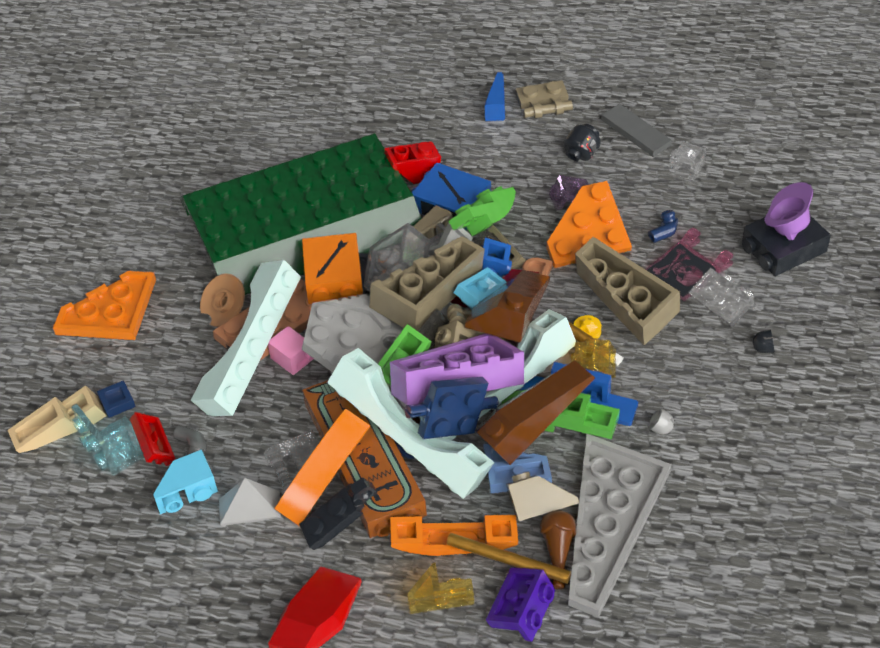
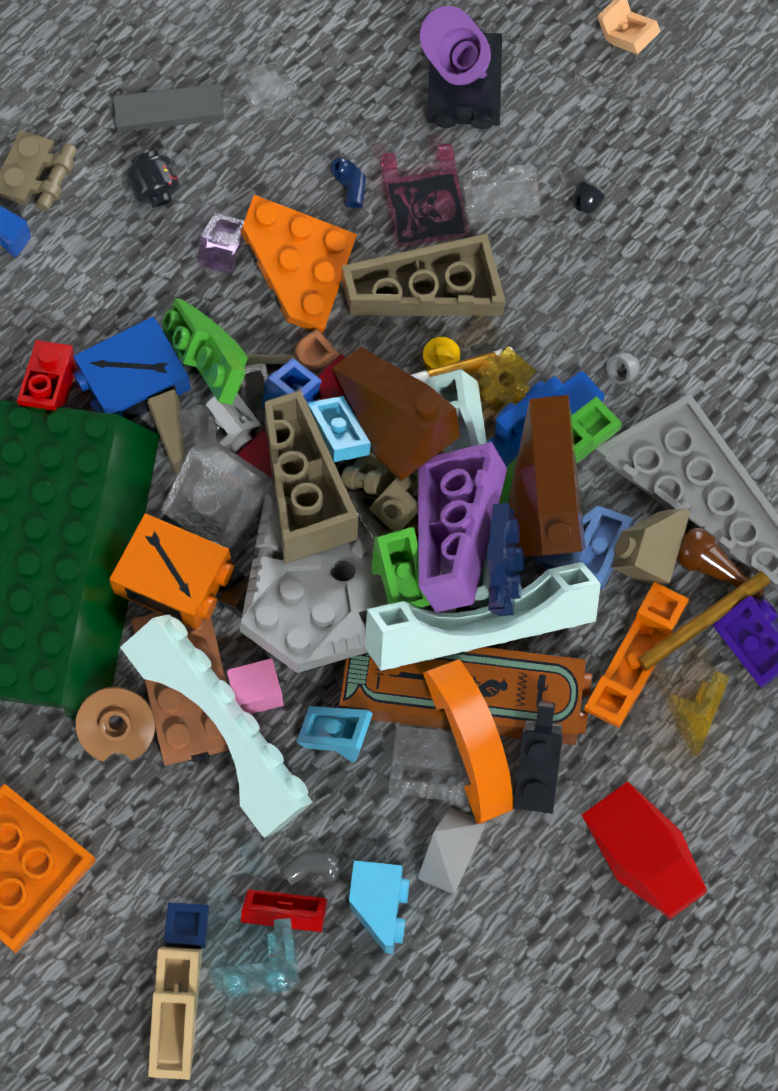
camera: 60 degrees left, 20 degrees up
(288, 406) = (335, 730): none -> medium azure slope

